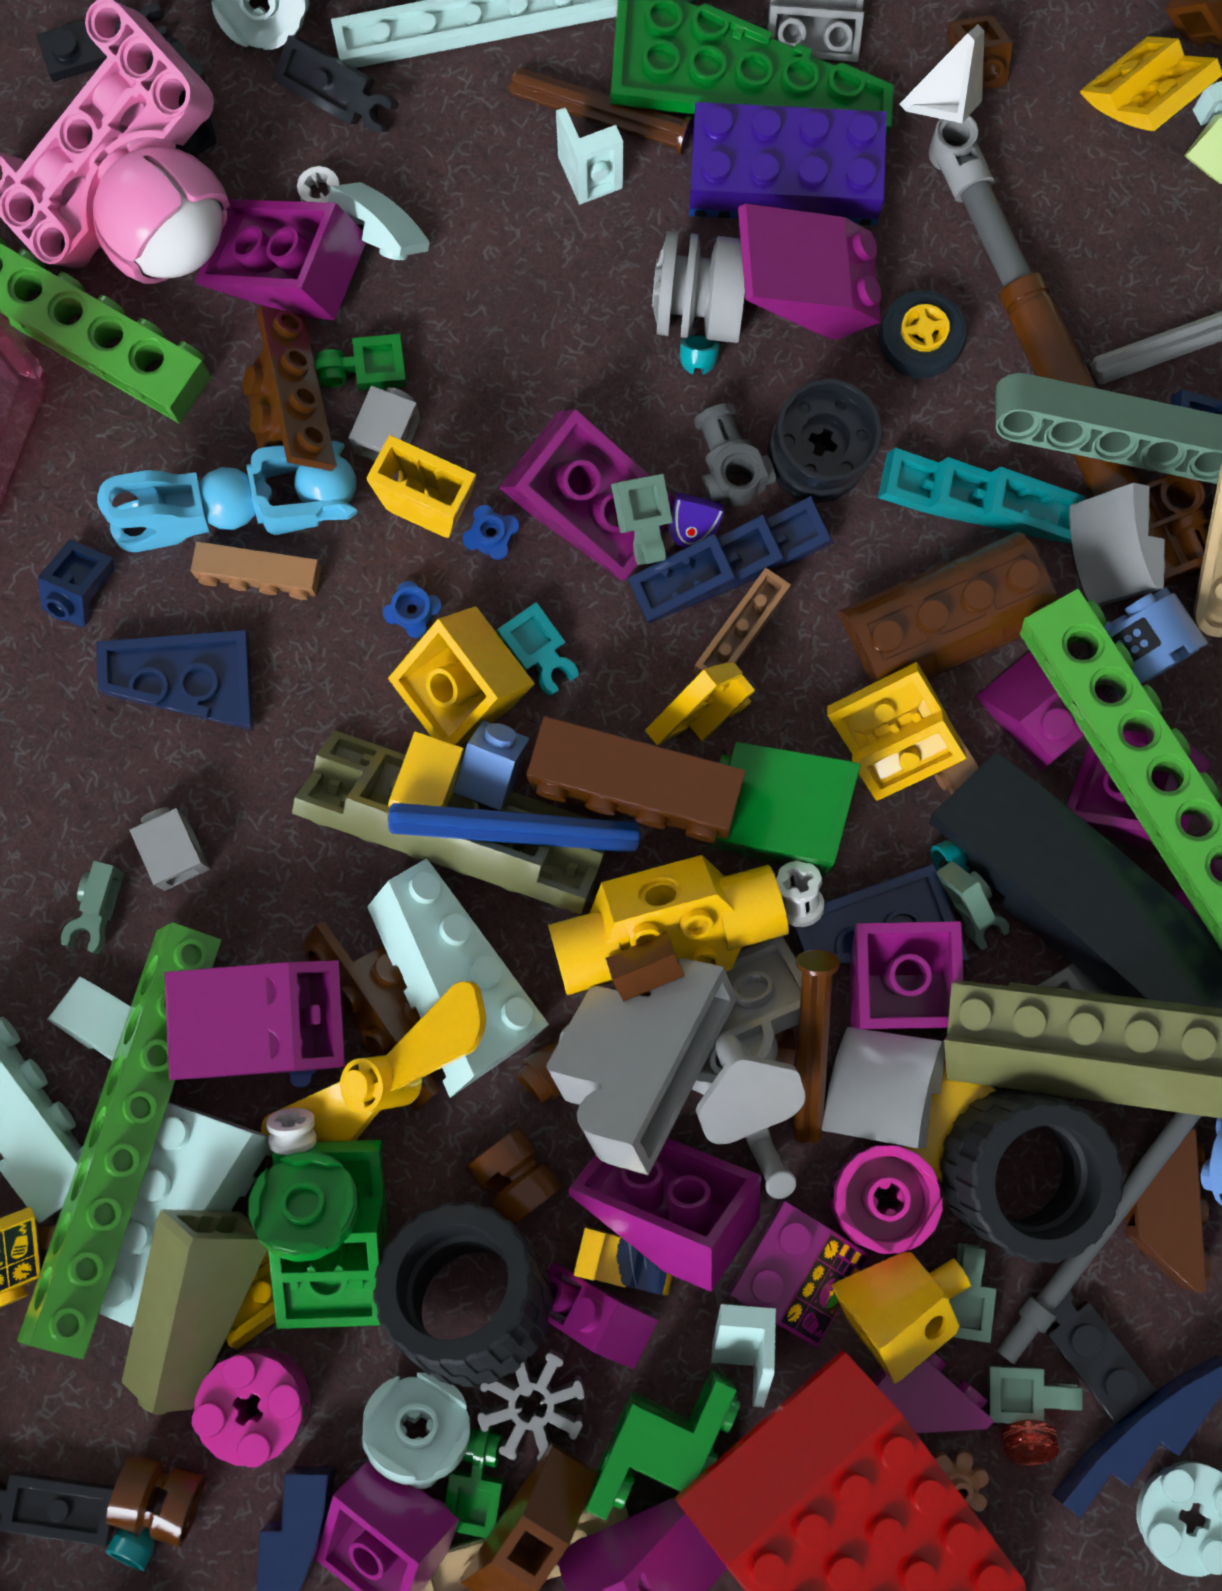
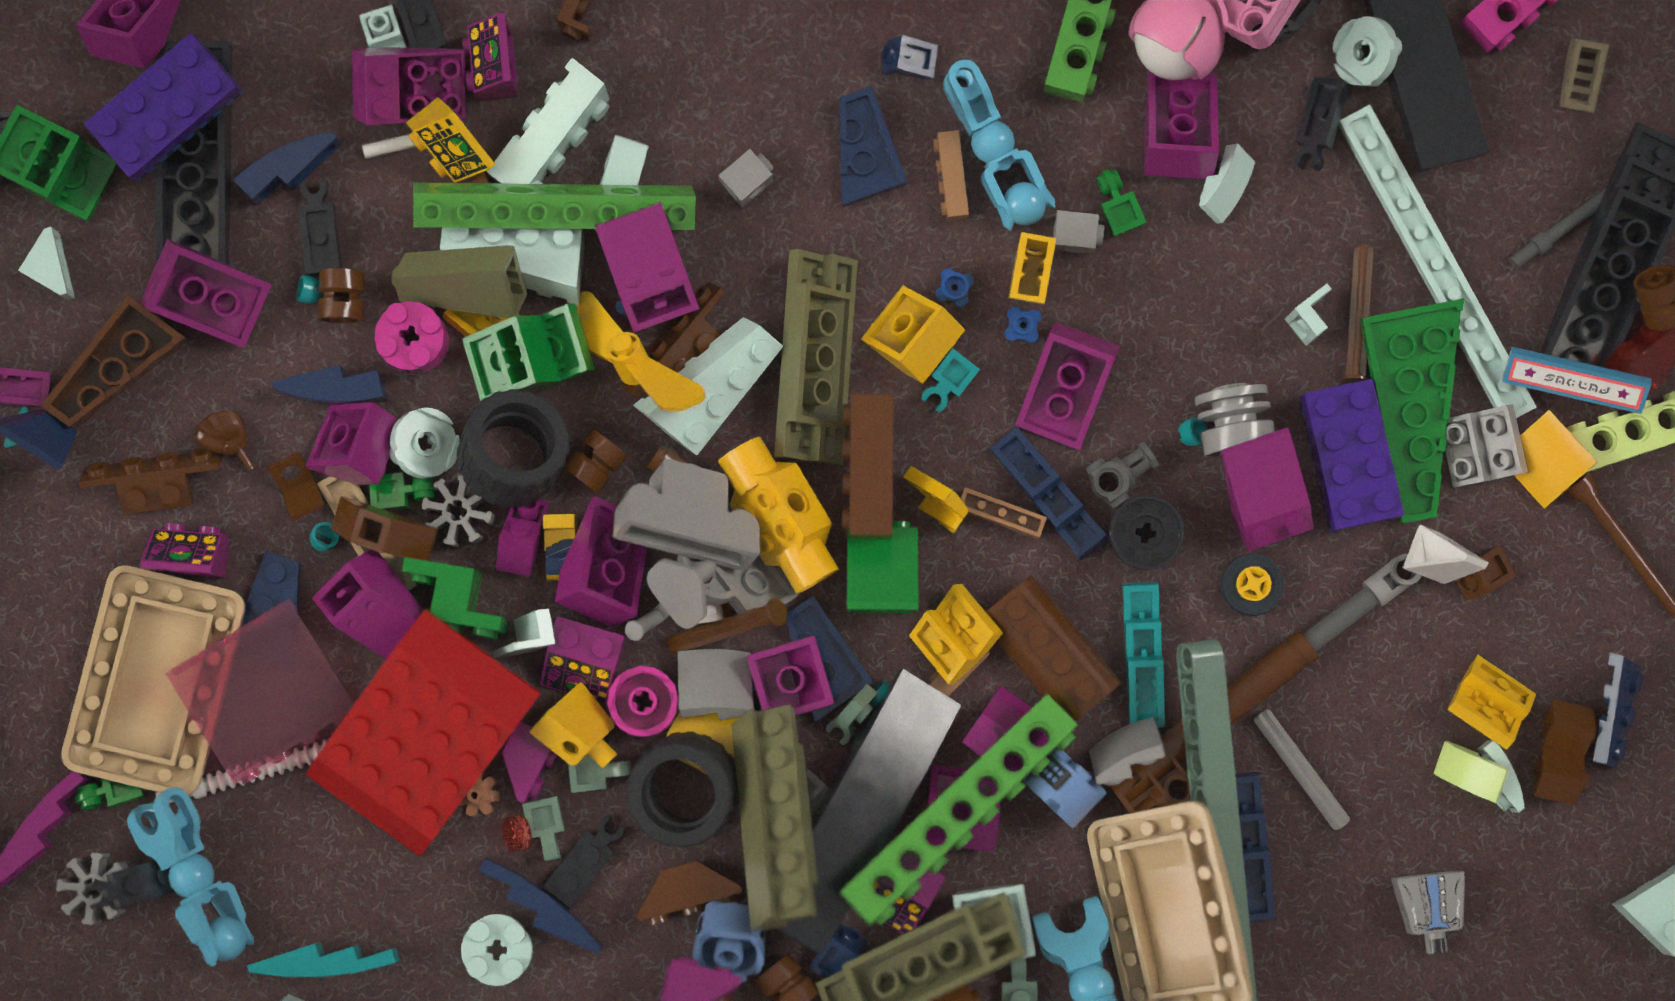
camera: 75 degrees right, 5 degrees up
(98, 896) = (704, 141): sand green plate -> none
(287, 393) = (1077, 159): reddish brown bracket -> none
(291, 1131) = (585, 311): white bush -> none
(304, 1206) = (539, 332): green tile -> none
(314, 176) = (1233, 126): white bush -> none
(428, 772) = (835, 331): yellow slope -> none
(491, 764) = (858, 370): medium blue brick -> none
(512, 827) = (817, 396): blue axle -> none
(642, 508) = (1062, 422): sand green plate -> none
(644, 966) = (746, 504): reddish brown piece -> none
(693, 519) = (1069, 460): dark purple tile -> none
(806, 889) = (824, 587): white bush -> none
(1038, 1312) = (599, 818): dark grey bar -> none

